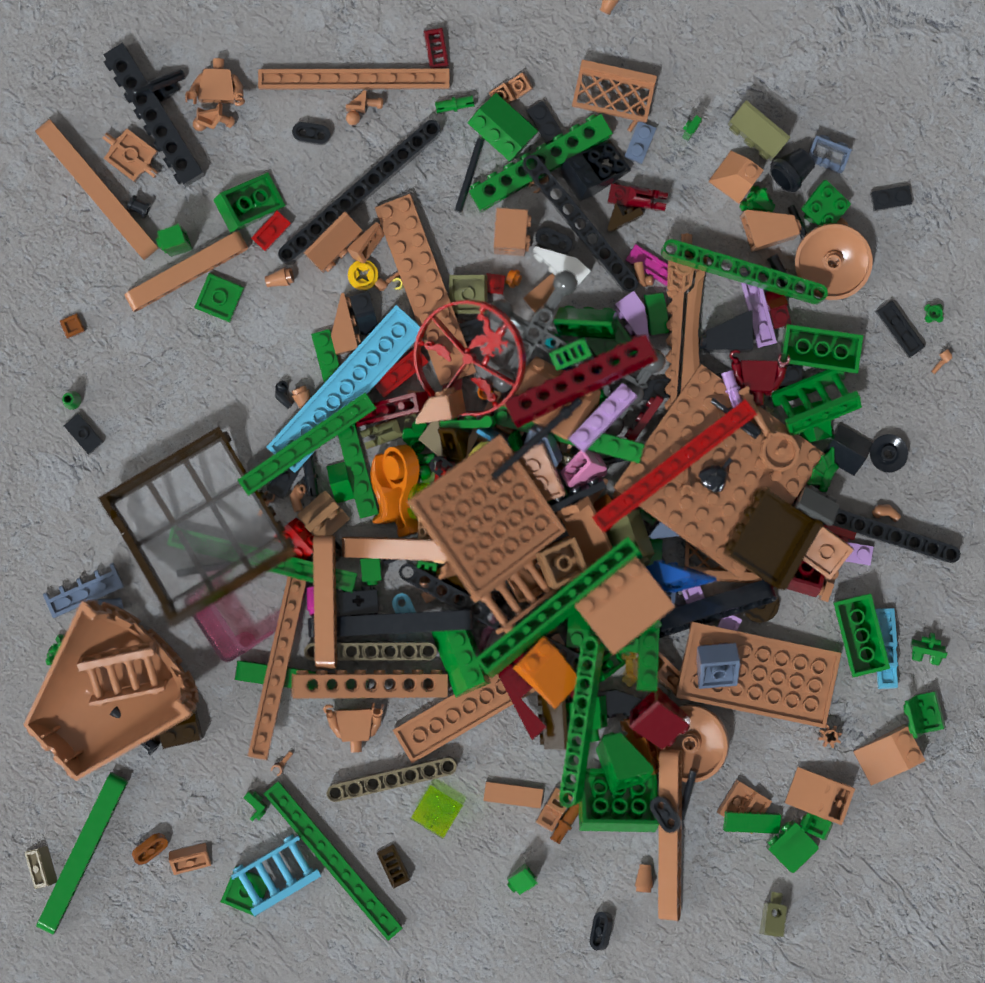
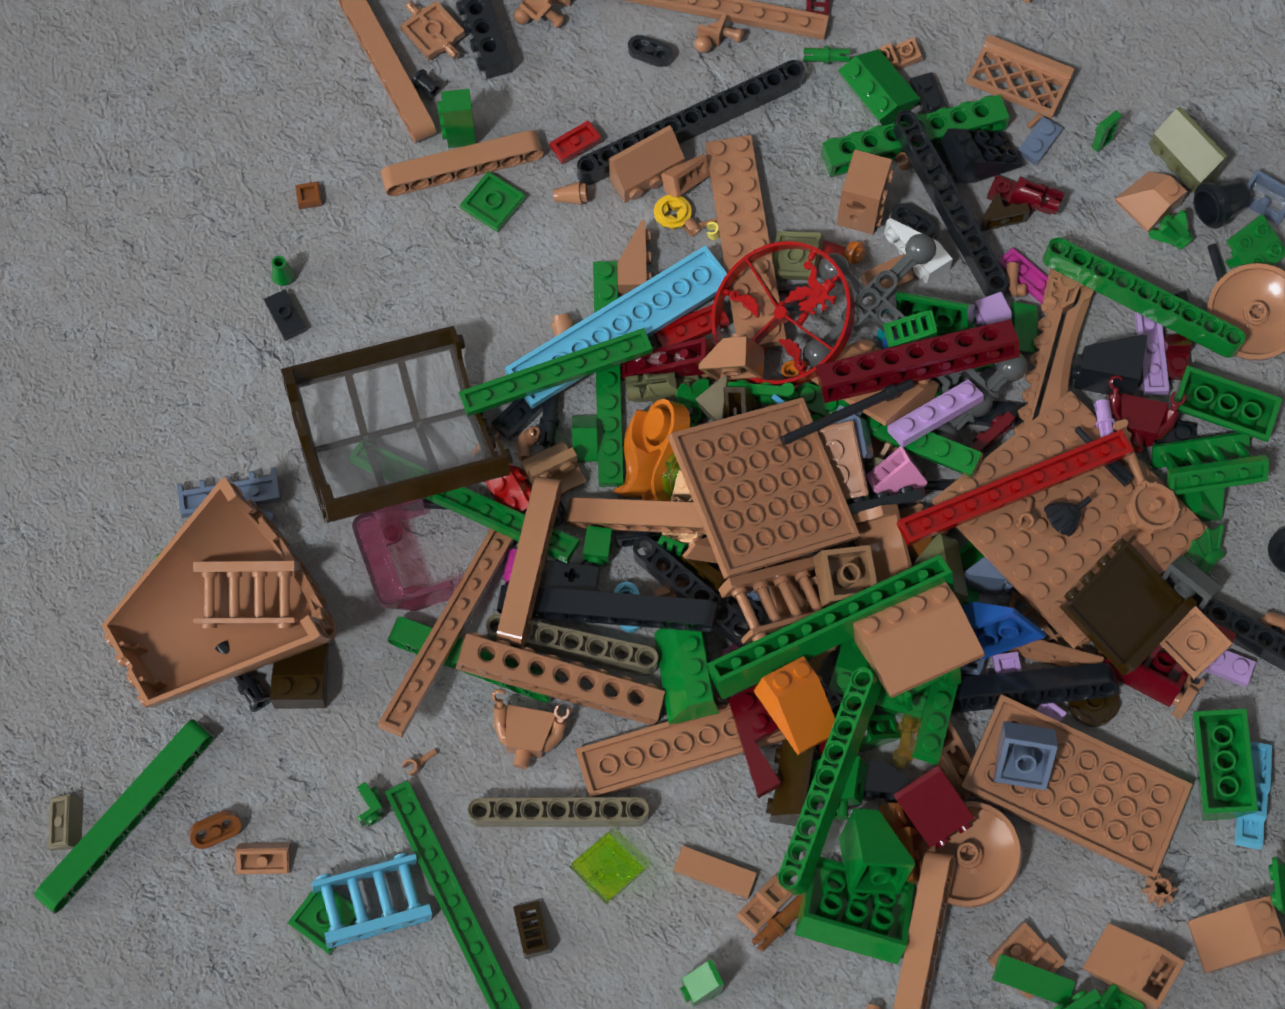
camera: 15 degrees right, 20 degrees down
(248, 202) = (555, 105): green slope -> none
(281, 394) = (539, 320): black arm -> none
(364, 312) = (663, 246): black slope -> none
(469, 175) = (826, 133): black bar -> none
(664, 814) = (919, 933): black plate -> none
(688, 791) = (953, 917): black bar -> none
(768, 228) = (1182, 257): nougat slope -> none
(850, 449) = (1241, 538): black slope -> none

